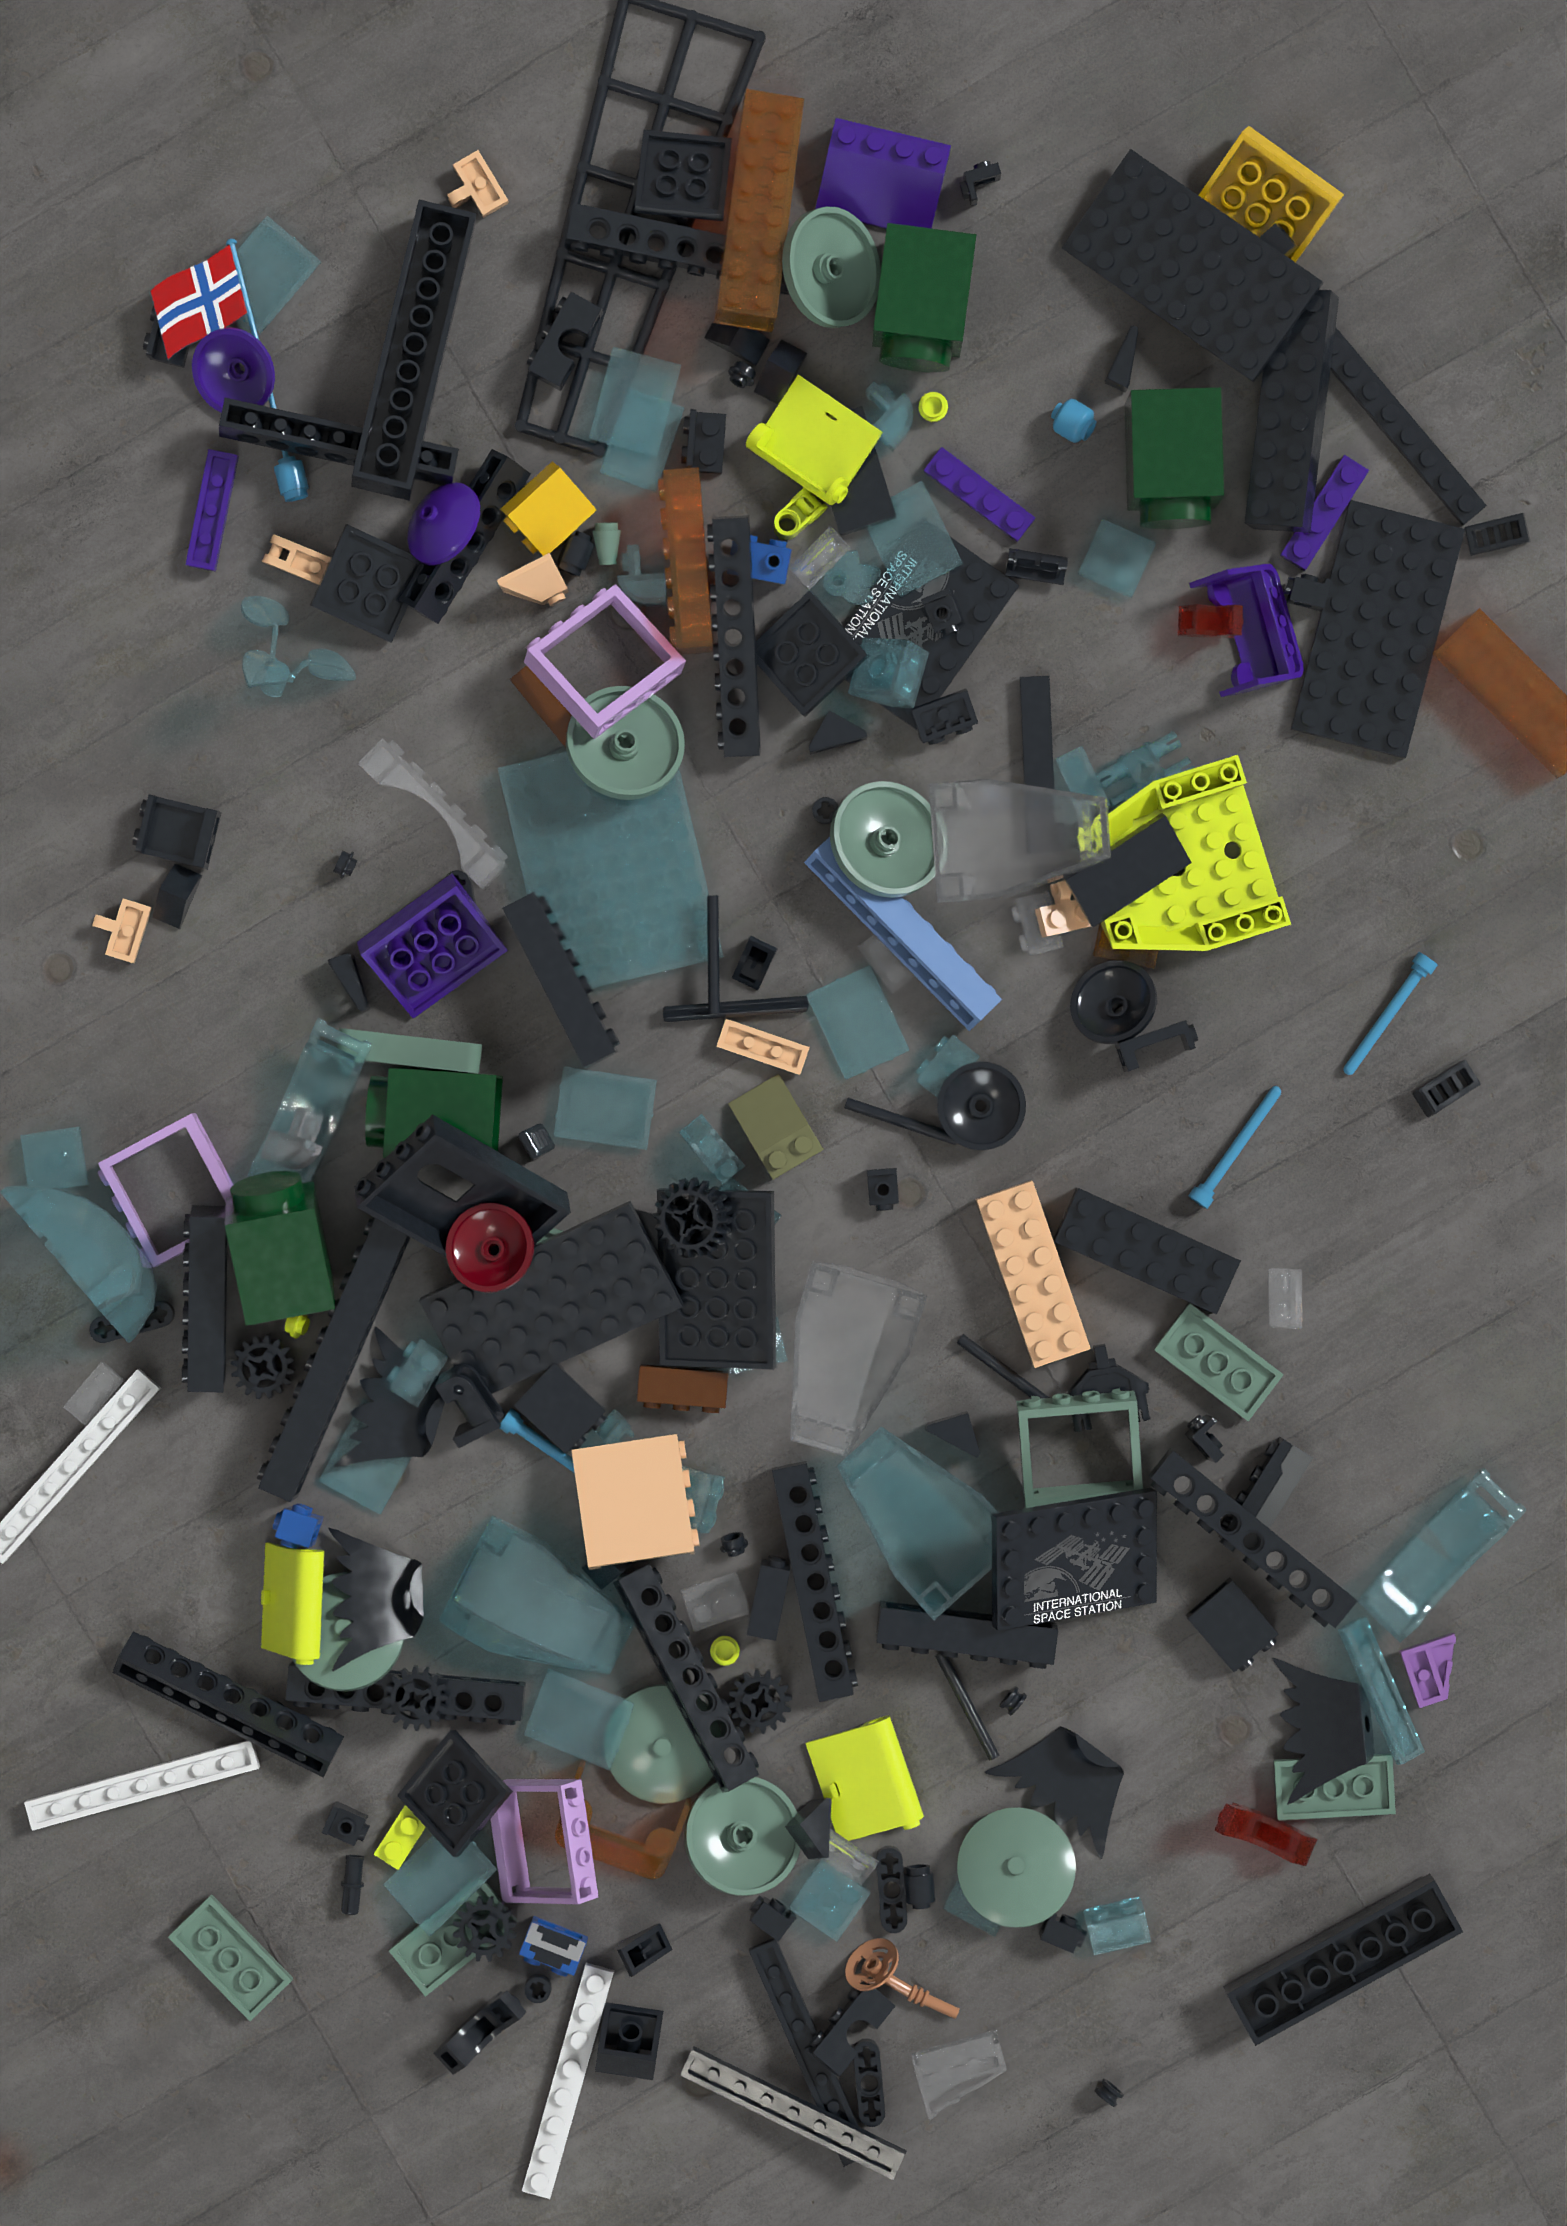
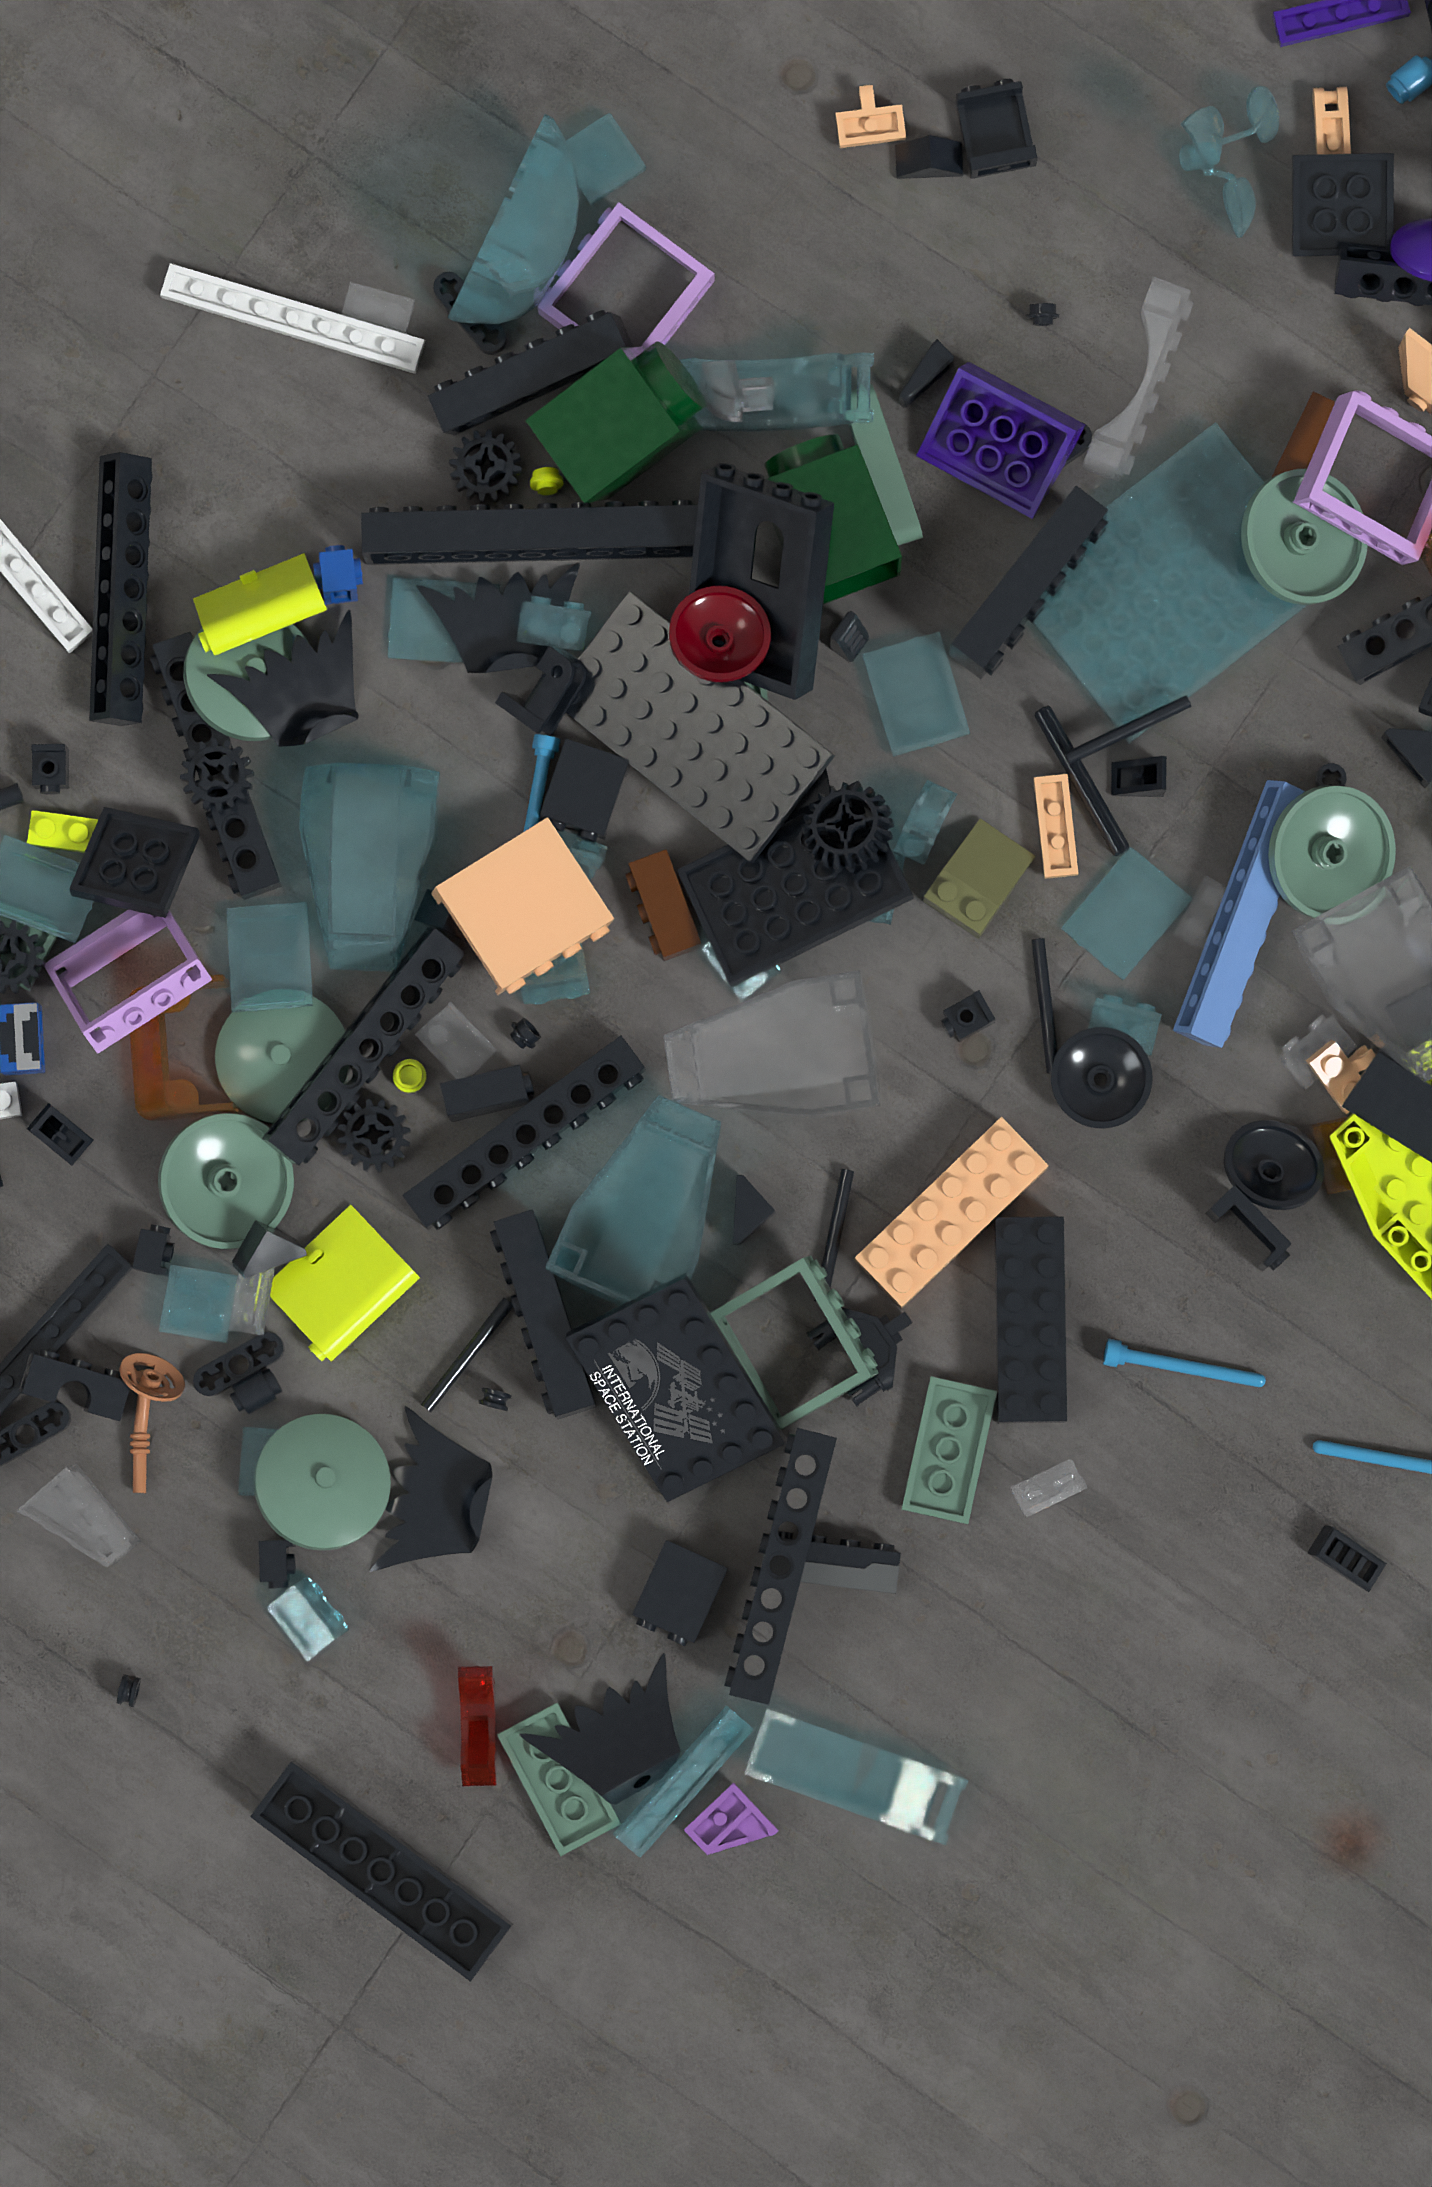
camera: 75 degrees right, 5 degrees down
(1205, 1442) = (858, 1474): black bracket -> none

